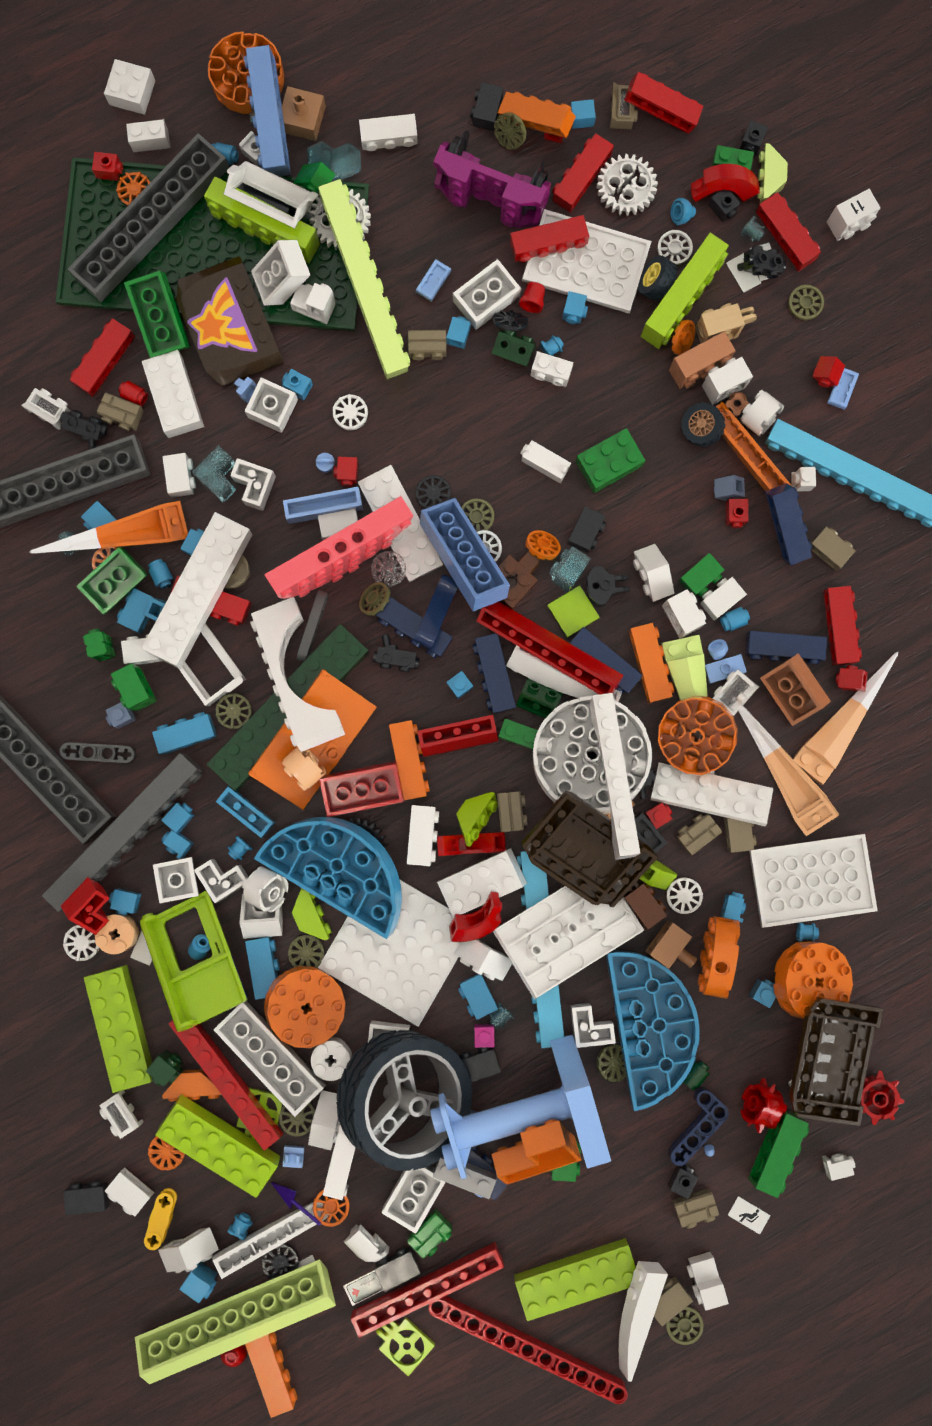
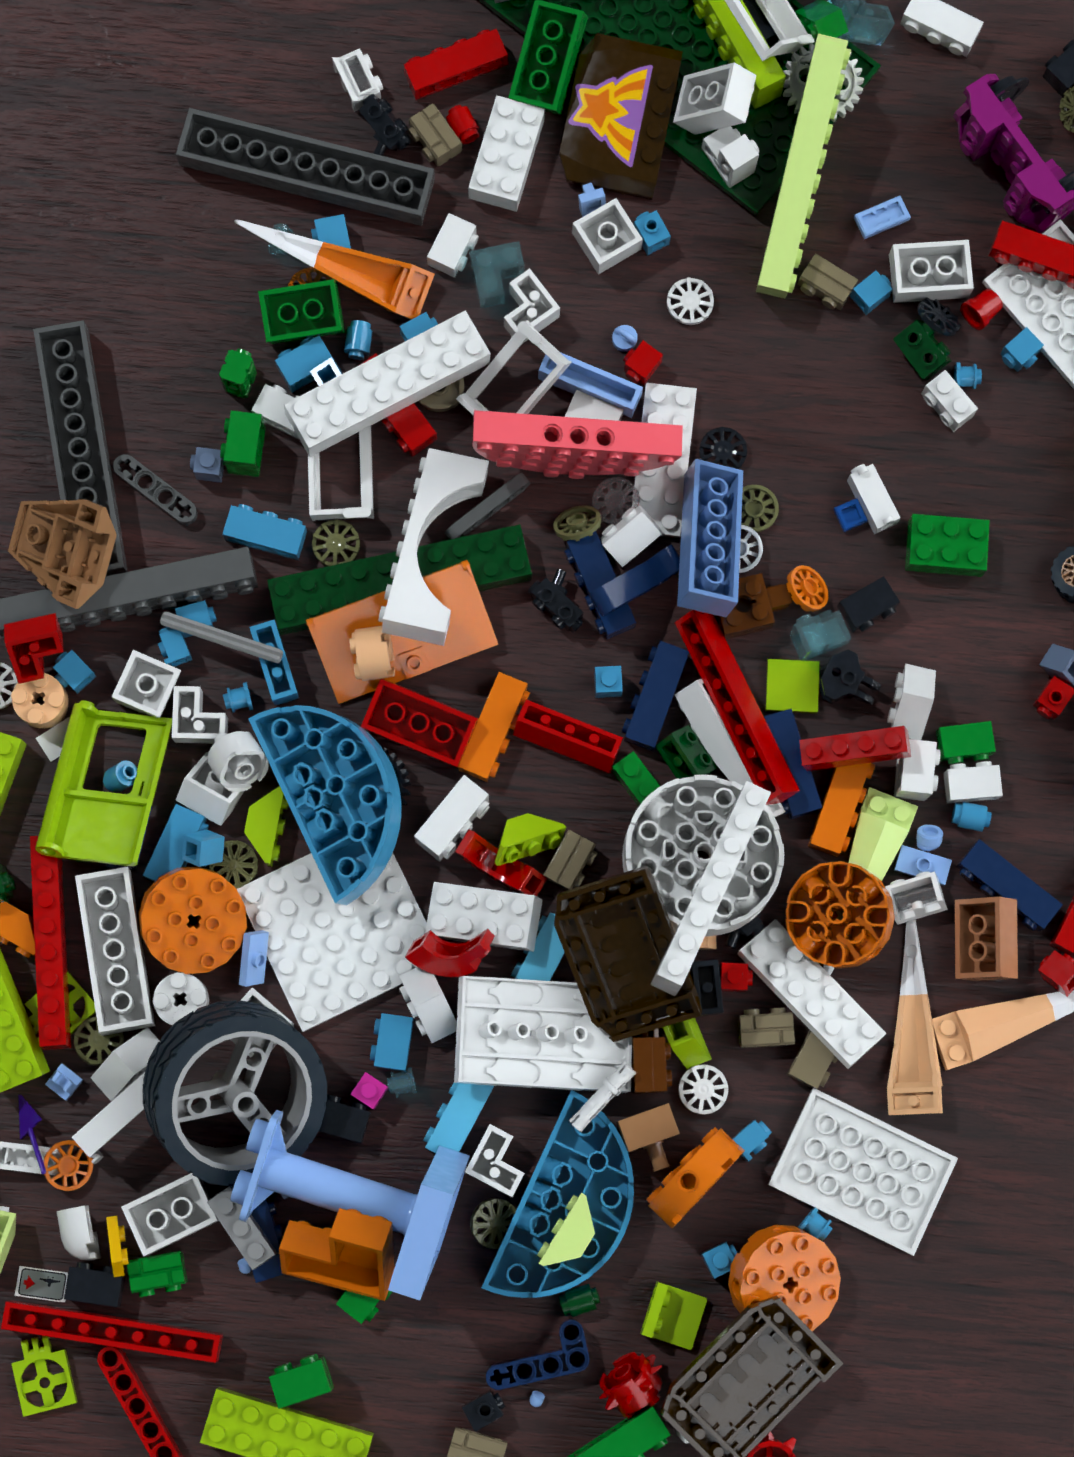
camera: 30 degrees right, 5 degrees down
(65, 831) = (64, 546): none -> medium nougat wedge
(201, 820) = (221, 637): none -> light grey axle
(261, 499) = (525, 331): none -> white piece
(280, 958) = (202, 848): none -> dark azure brick
(358, 1003) = (253, 958): none -> light blue plate
(399, 1242) = (118, 1256): none -> yellow plate
(412, 584) = (630, 535): none -> white brick
(538, 481) = (850, 515): none -> blue tile
(563, 1241) = (302, 1381): none -> green brick
(632, 936) = (611, 1087): none -> white pin
(640, 626) = (855, 748): none -> red brick
(667, 1043) = (571, 1234): none -> yellowish green slope
(758, 1045) = (673, 1315): none -> lime bracket

